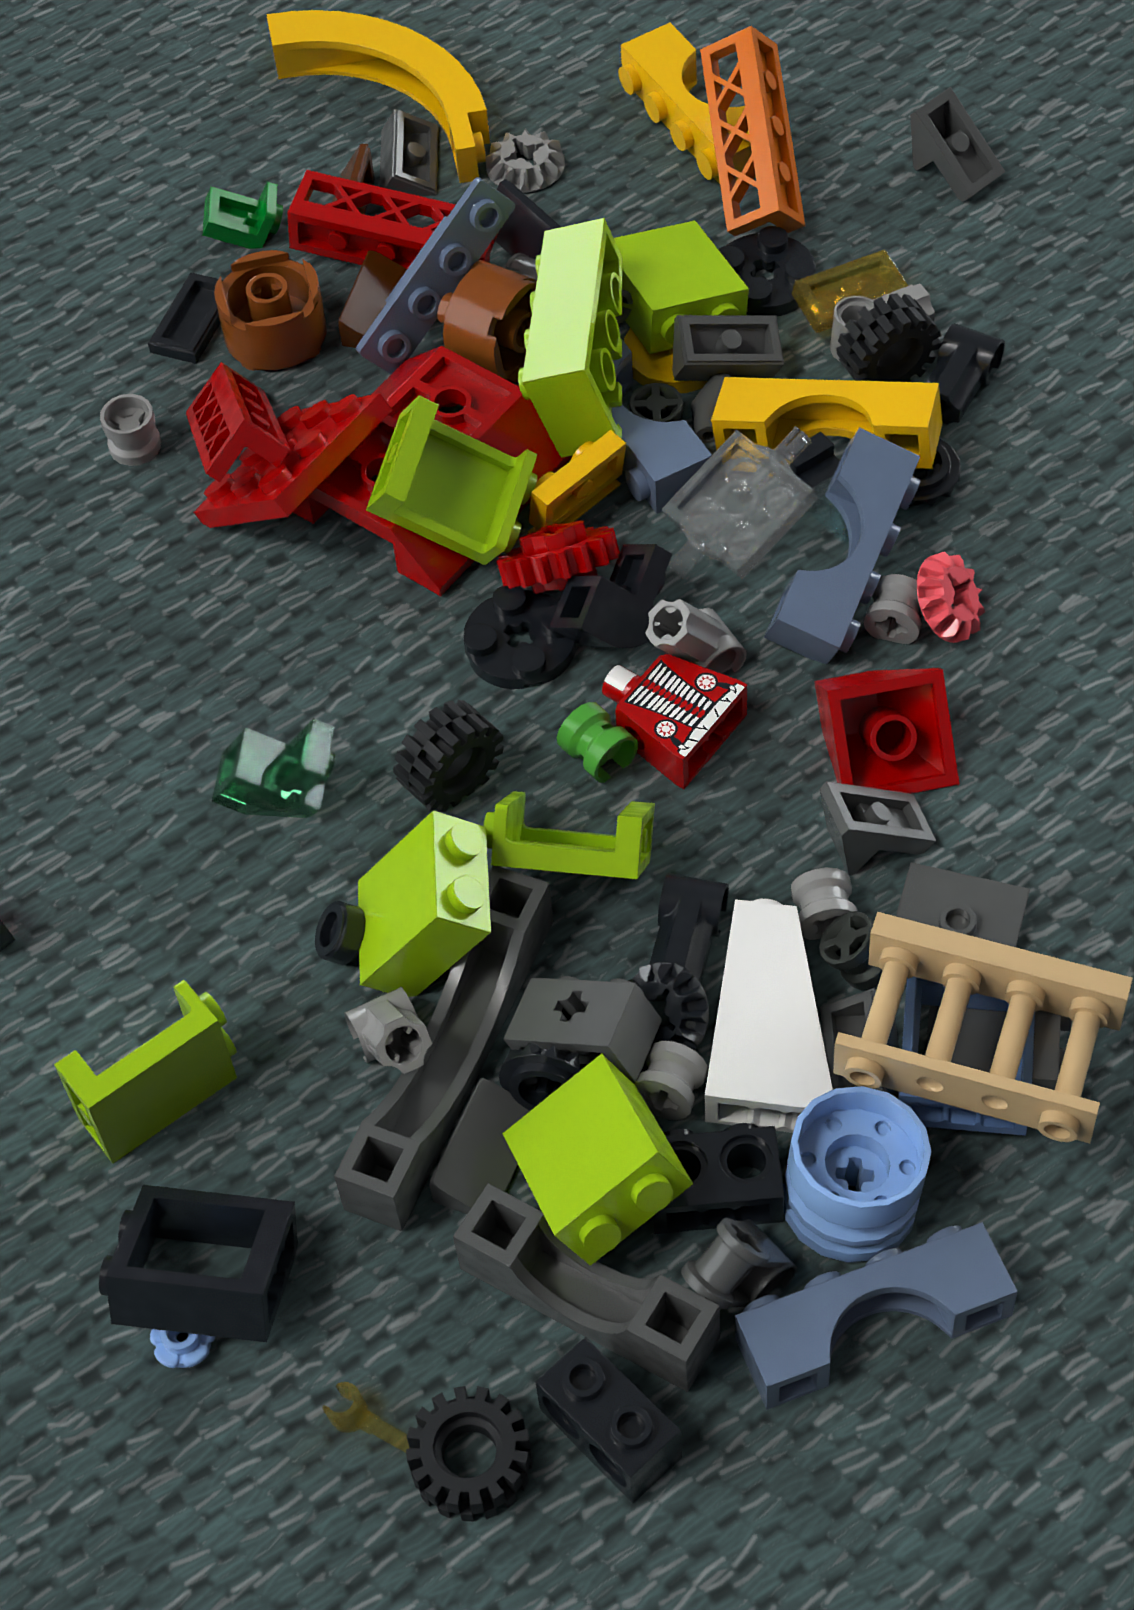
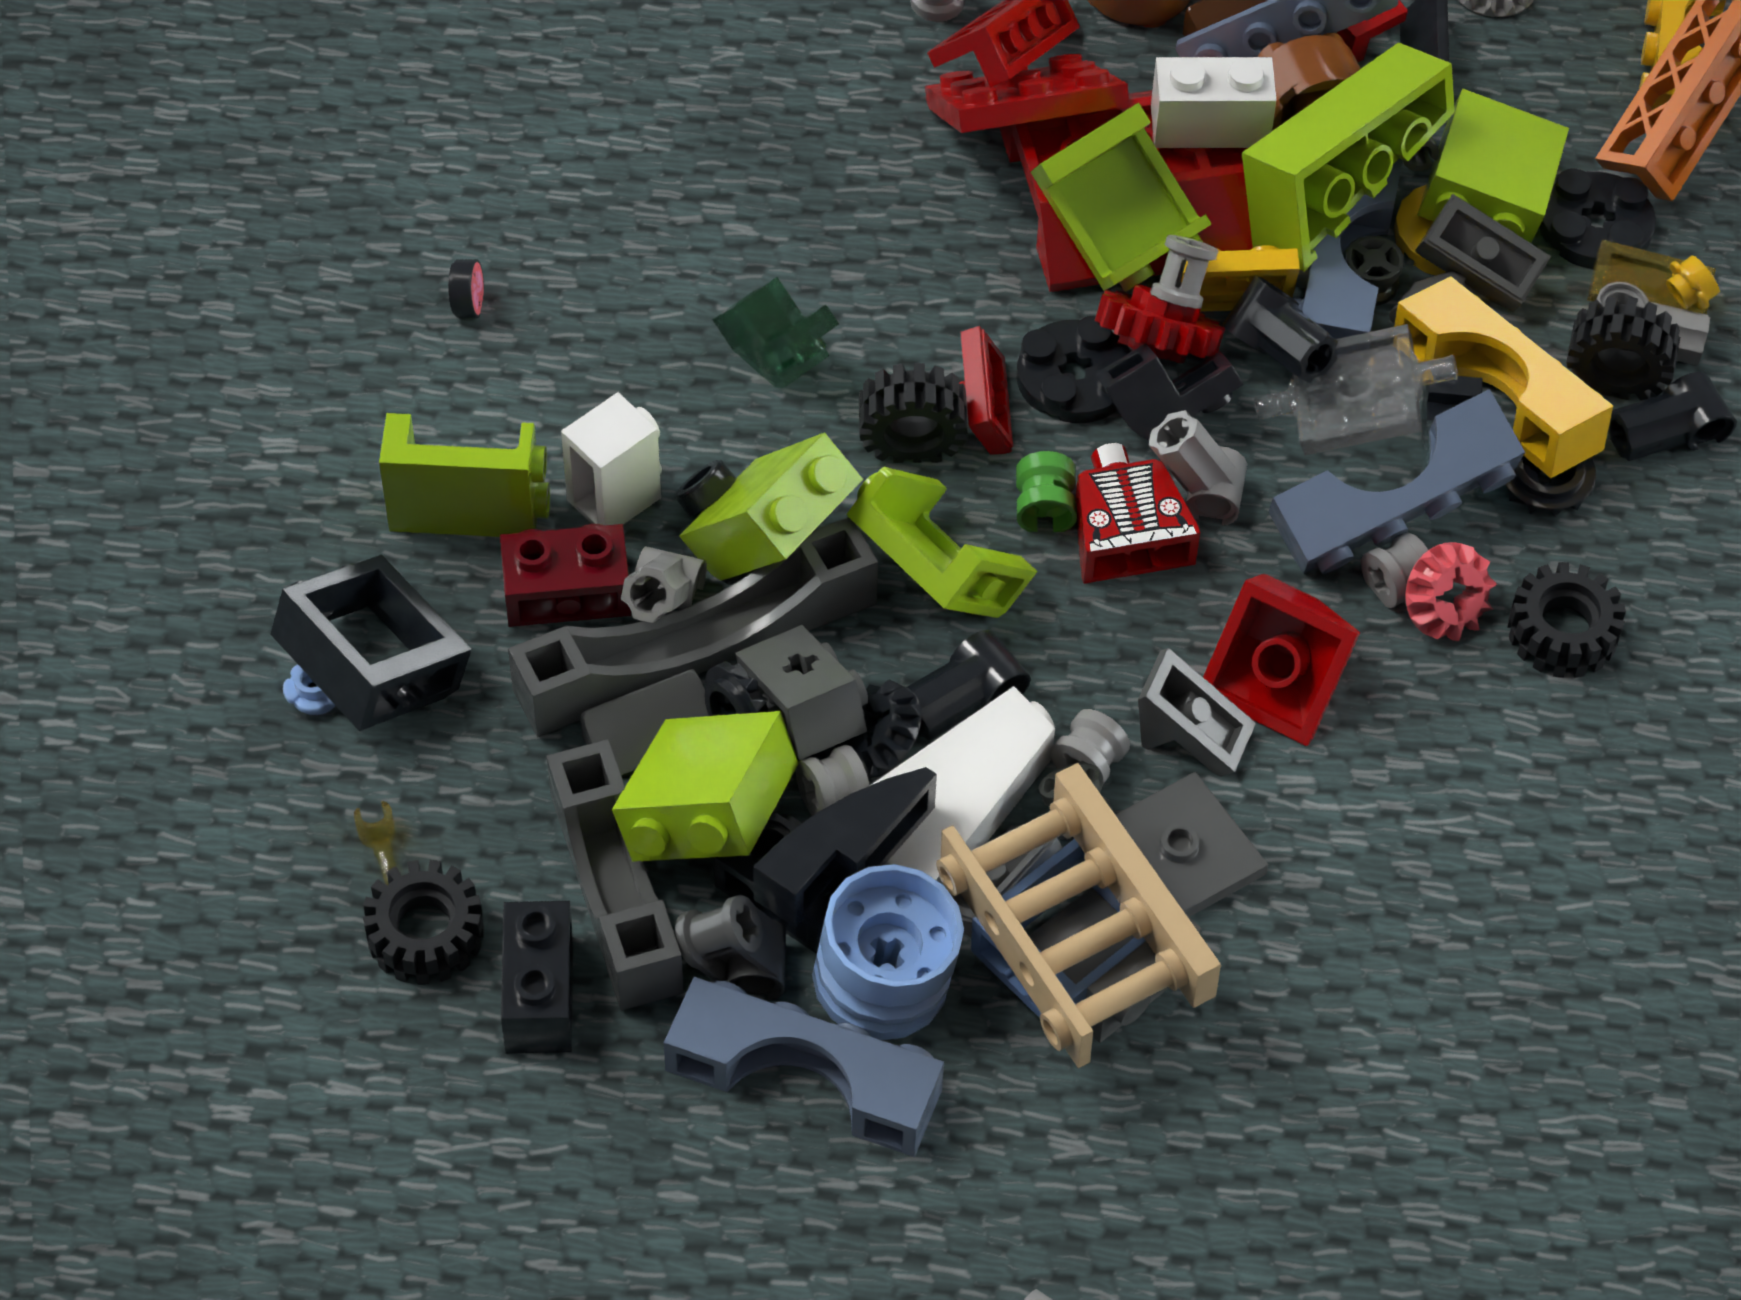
camera: 35 degrees right, 0 degrees up
(259, 967) = (612, 462): none -> white piece
(300, 1084) = (564, 574): none -> dark red brick
(454, 361) = (1212, 101): none -> white piece
(466, 689) = (986, 391): none -> red plate
(555, 501) = (1170, 285): none -> light grey bush
(642, 497) = (1273, 325): none -> black piece
(752, 1120) = (841, 841): none -> black slope
(887, 267) = (1692, 283): none -> yellow plate
(1034, 584) = (1573, 592): none -> black tyre

